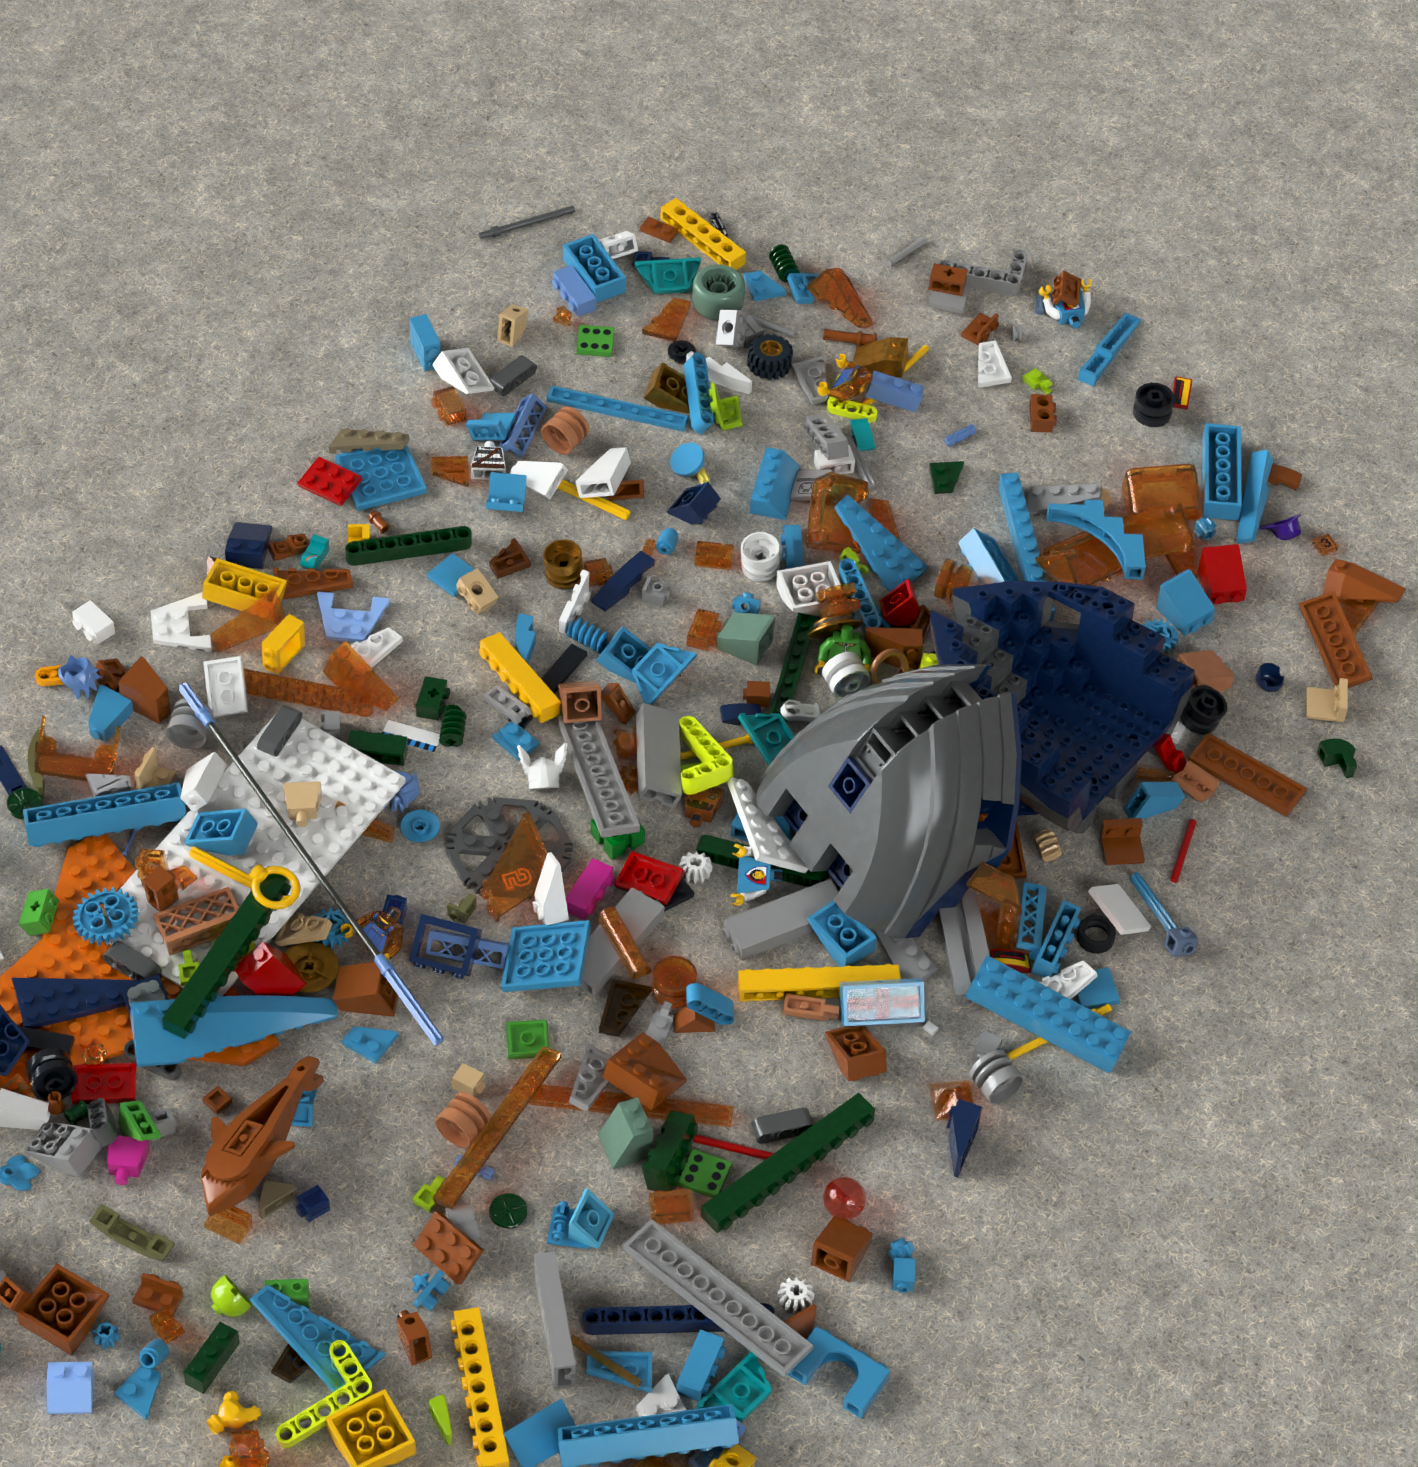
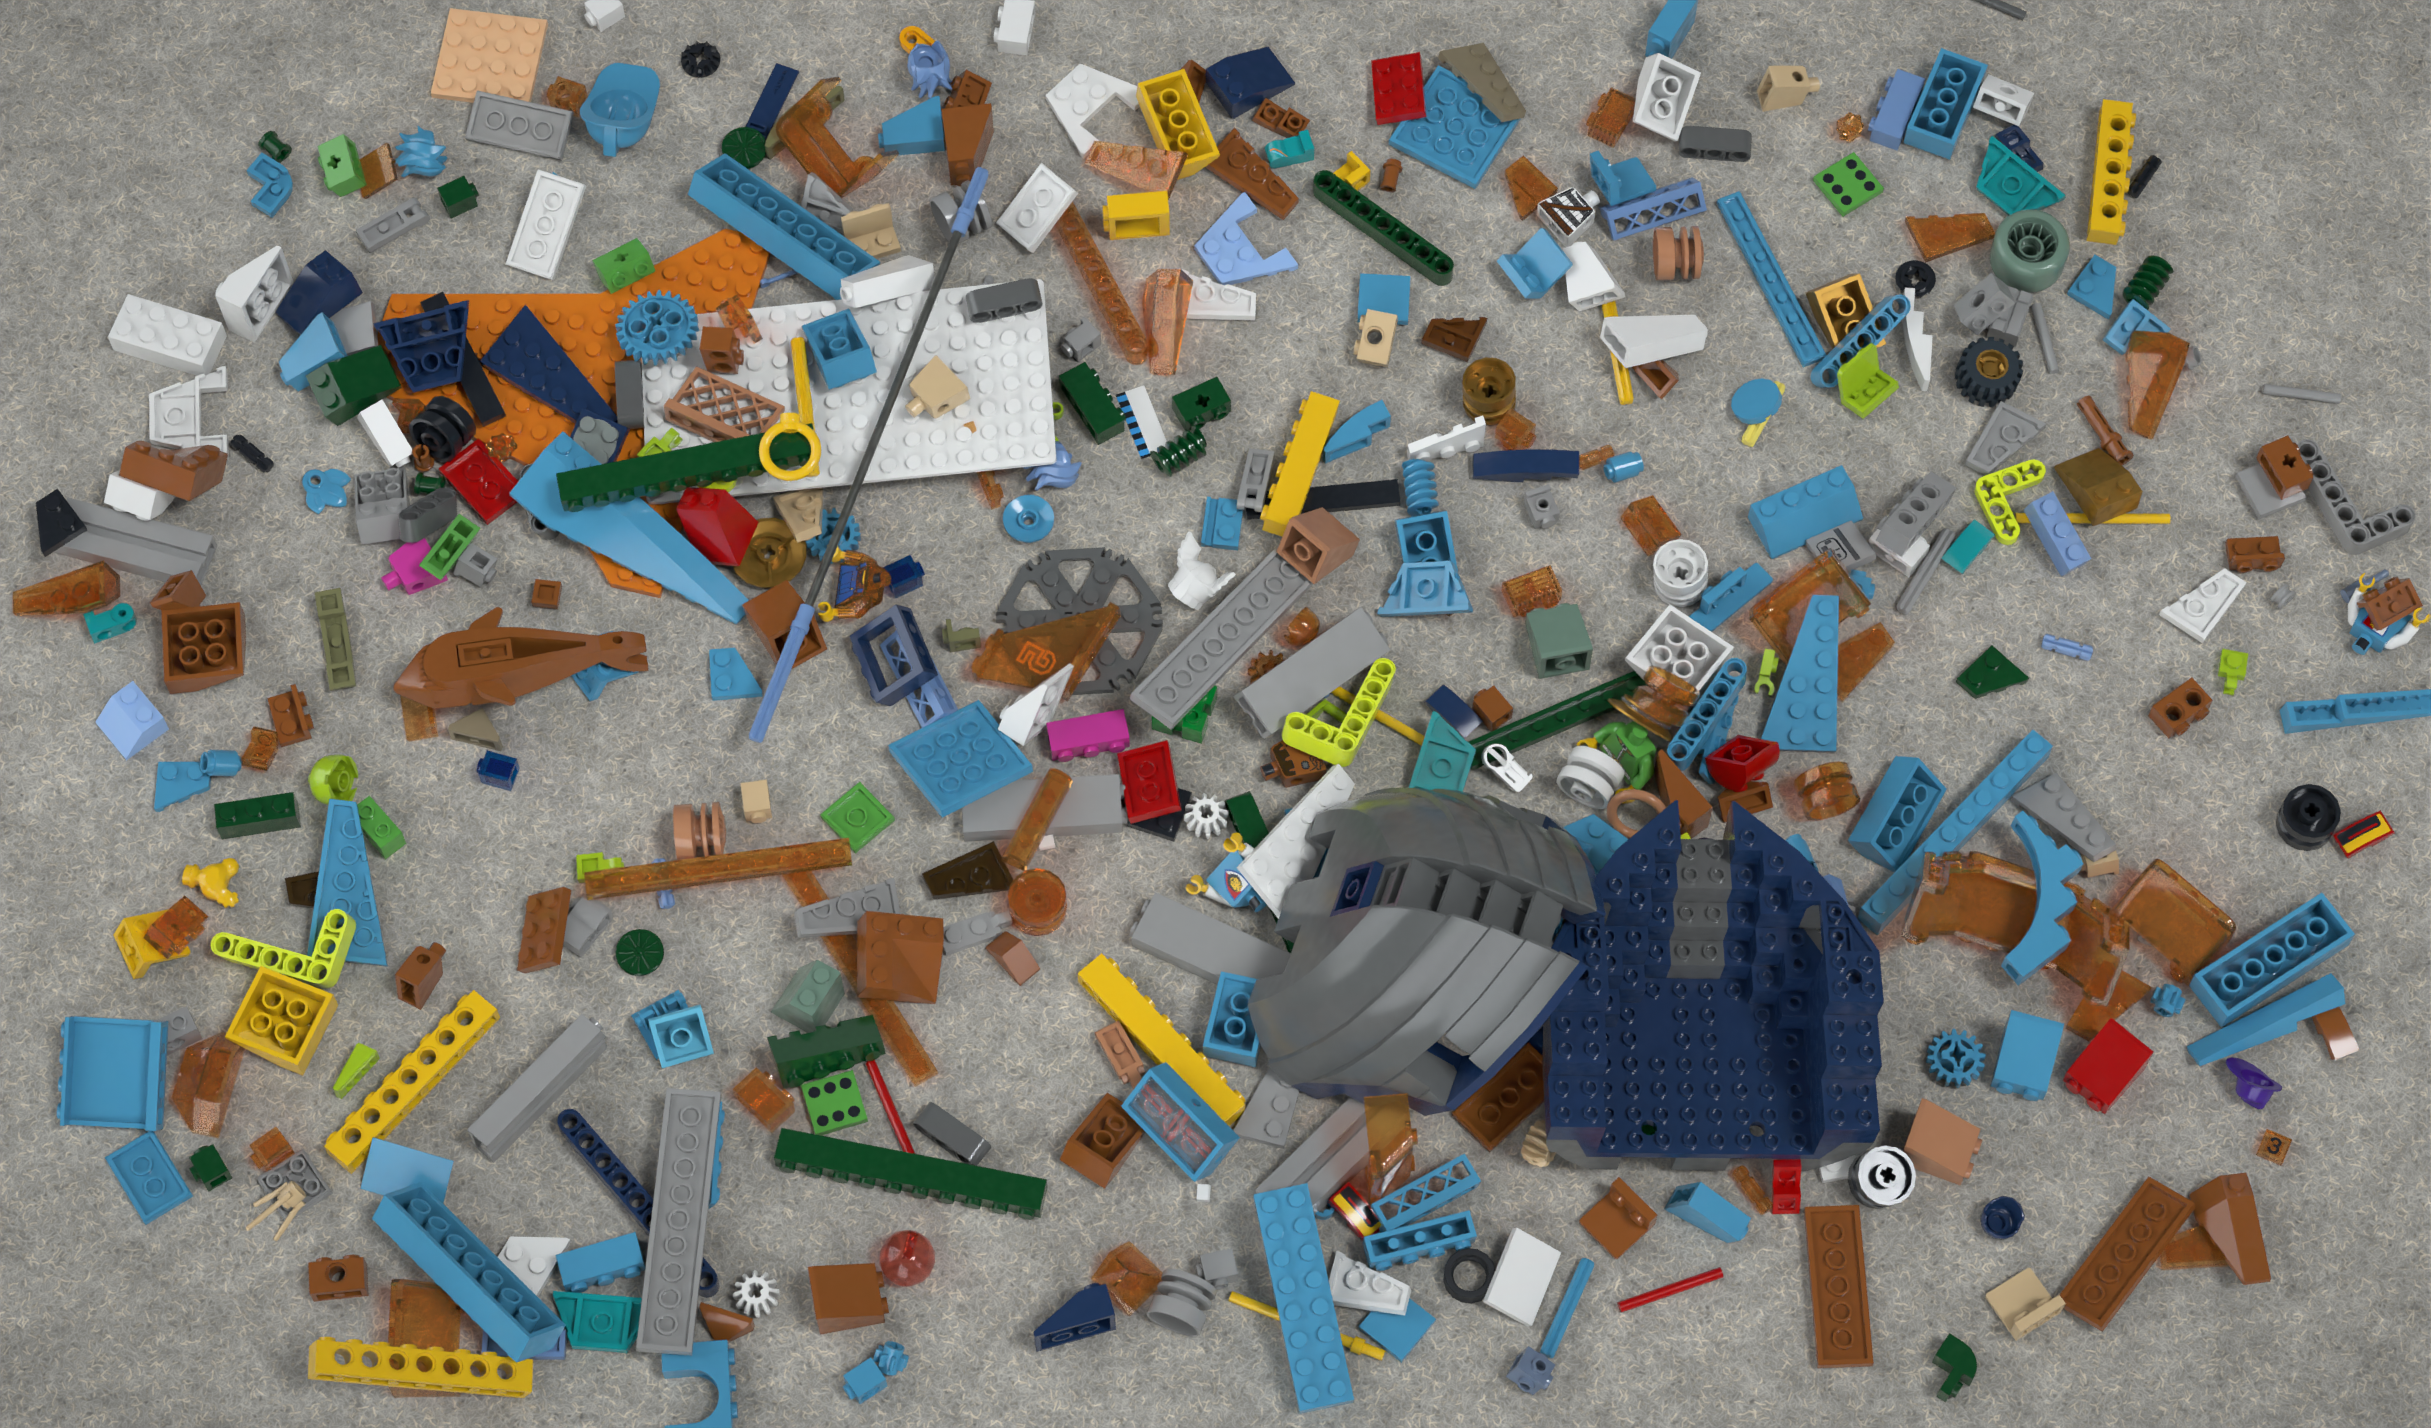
camera: 55 degrees right, 15 degrees up
(106, 1335) = (207, 700): dark azure gear -> none
(183, 876) = (761, 355): clear orange slope -> none
(437, 1283) = (500, 950): dark azure hips -> none
(606, 1361) = (530, 1171): clear orange bar -> none
(617, 702) = (1351, 582): dark orange slope -> none
(635, 1362) = (542, 1192): dark azure wing -> none
(659, 229) = (2078, 122): dark orange plate -> none
(695, 504) = (1701, 455): dark blue slope -> none
(710, 1004) = (1033, 956): dark azure beam -> none
(748, 598) = (1602, 610): dark azure brick -> none
(849, 383) = (2017, 480): clear orange torso -> none
(1196, 782) = (1773, 1238): nougat bracket -> none

